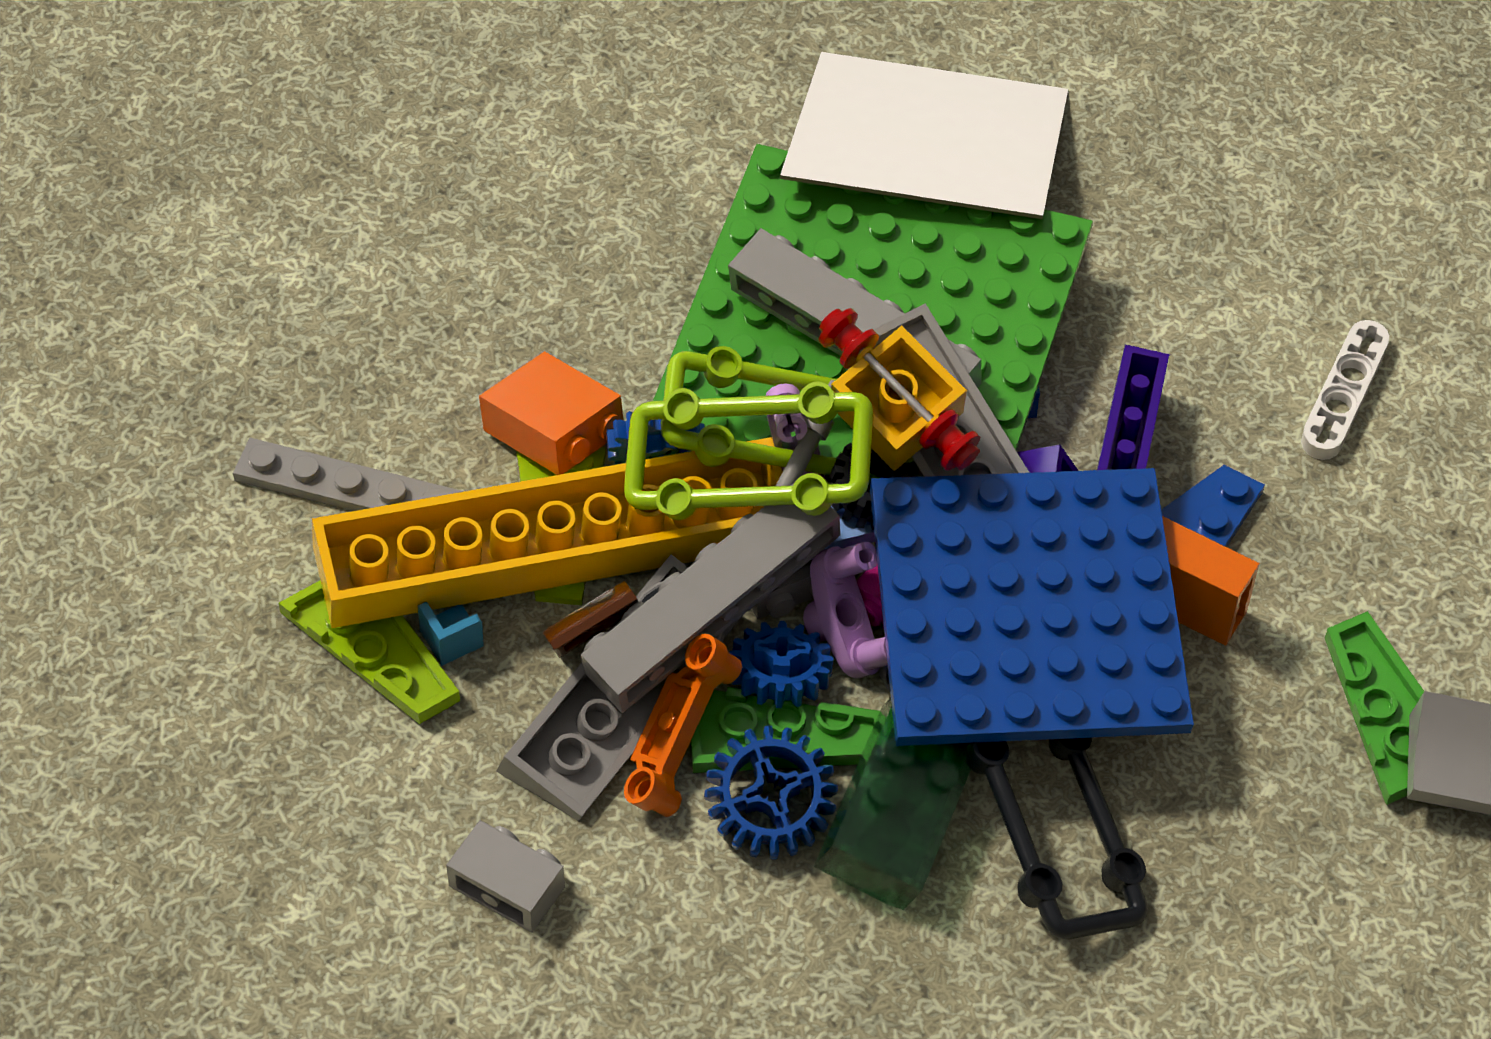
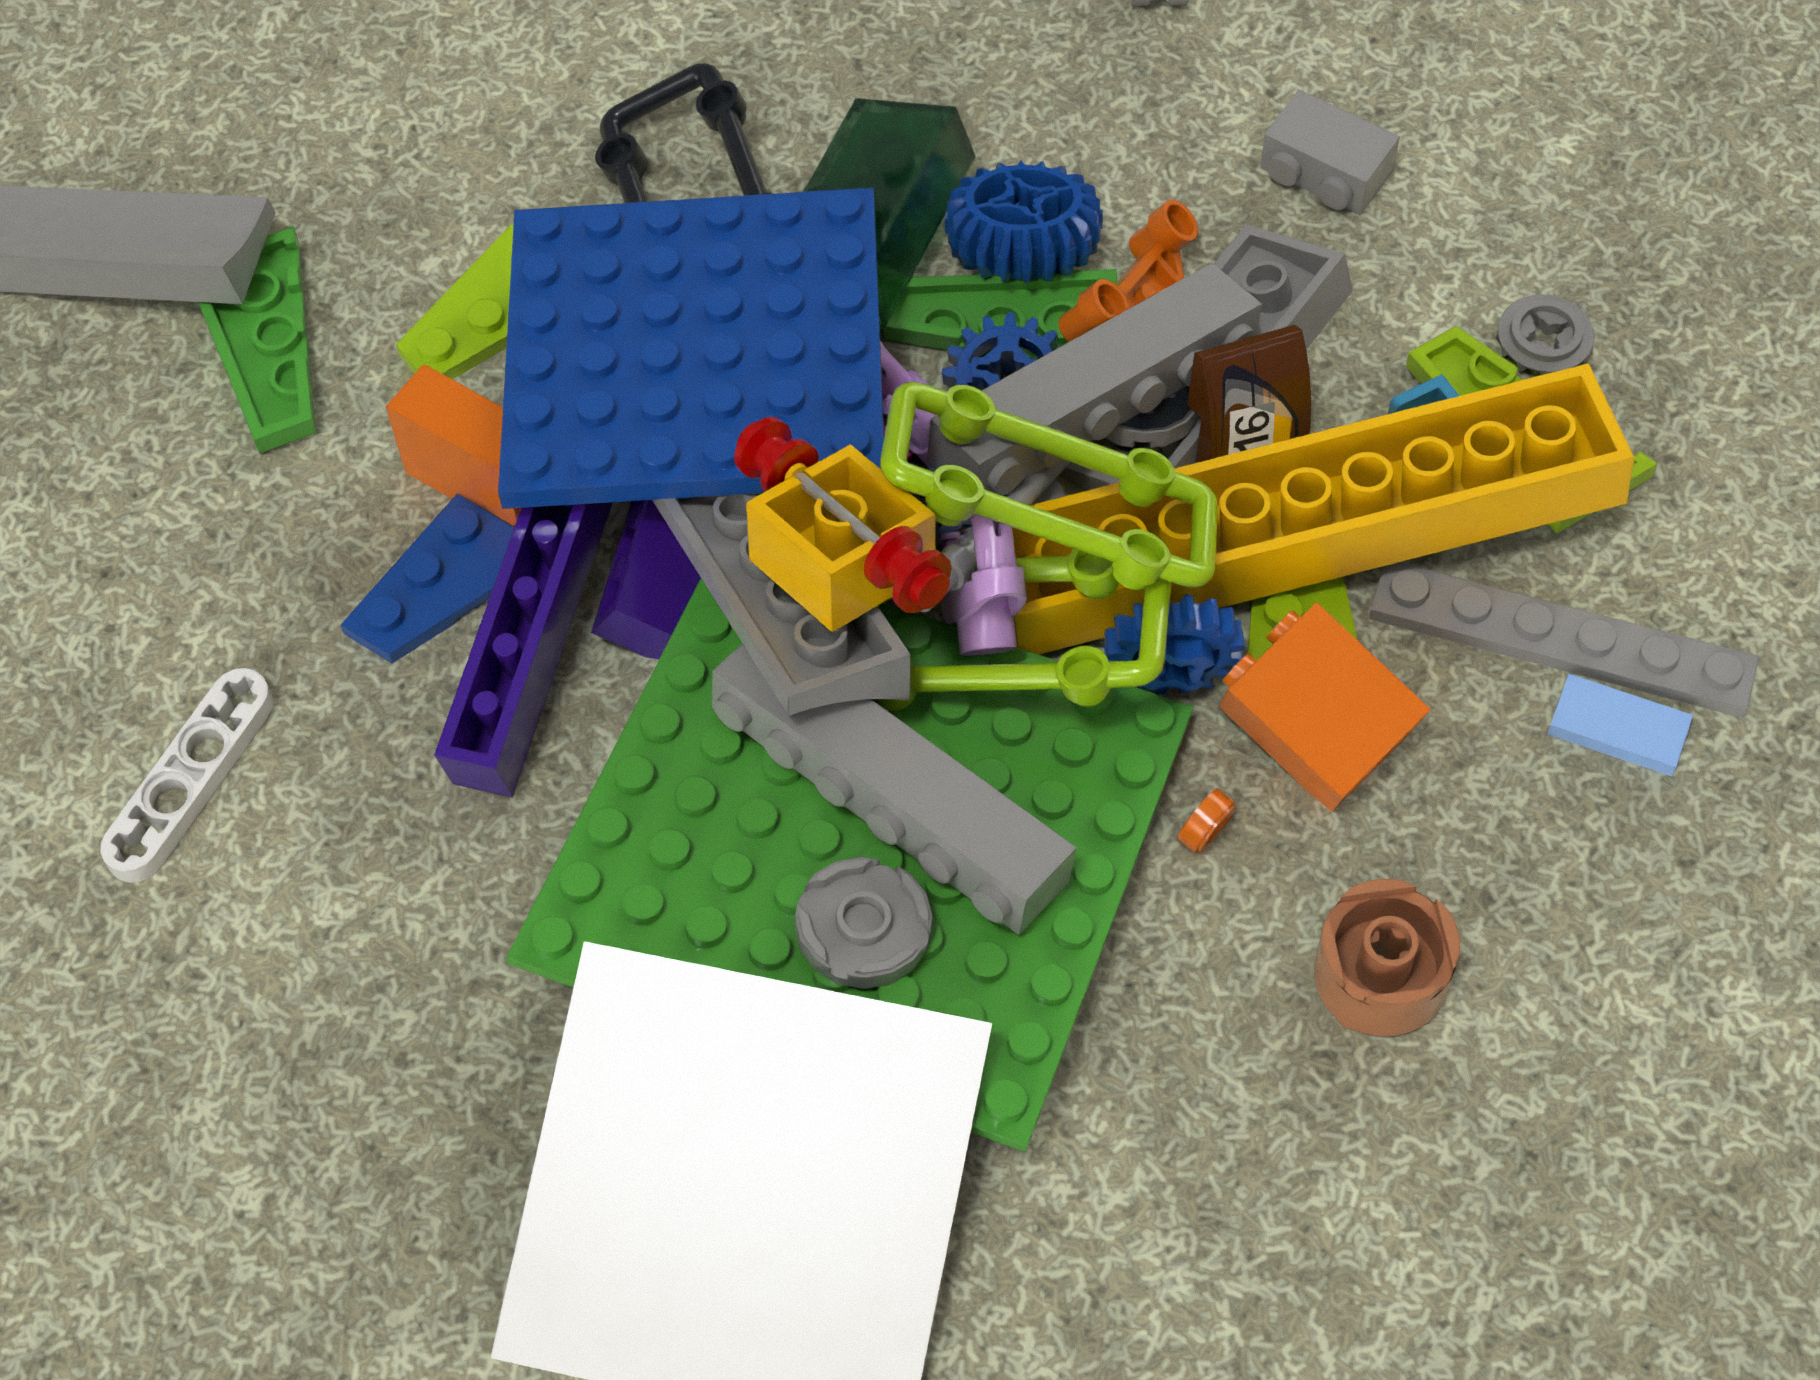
camera: 175 degrees left, 5 degrees up
(340, 433) = (1620, 724): none -> light blue tile
(354, 705) = (1552, 316): none -> light grey gear
(524, 267) = (1418, 964): none -> nougat brick
(635, 359) = (1207, 821): none -> orange tile
(866, 244) = (863, 923): none -> light grey tile
(1222, 734) = (468, 319): none -> lime wing

